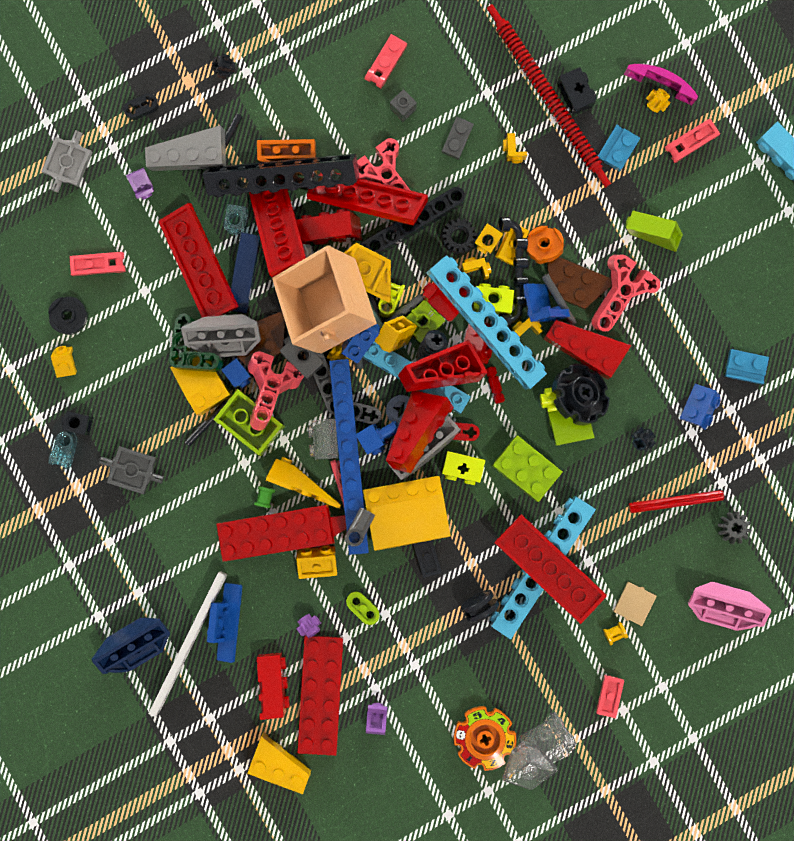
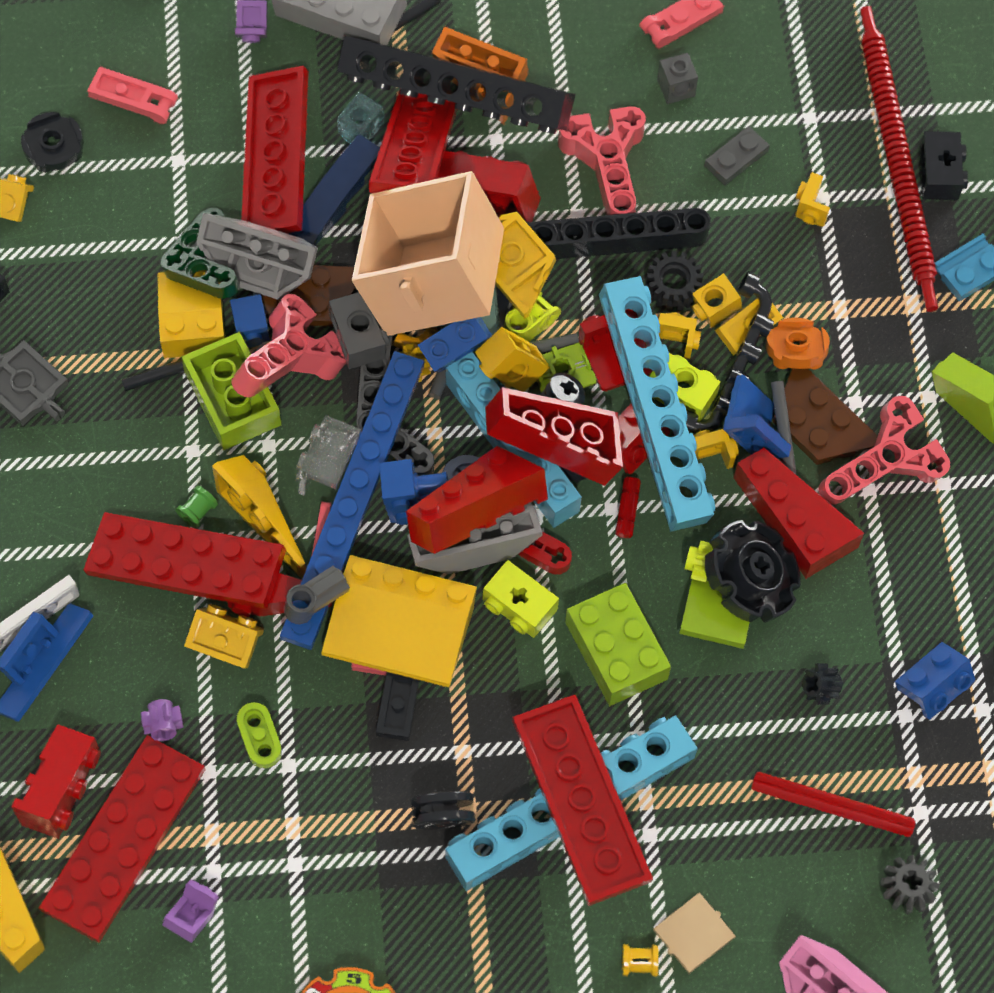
camera: 25 degrees right, 20 degrees down
(373, 199) = (566, 166): red plate -> none

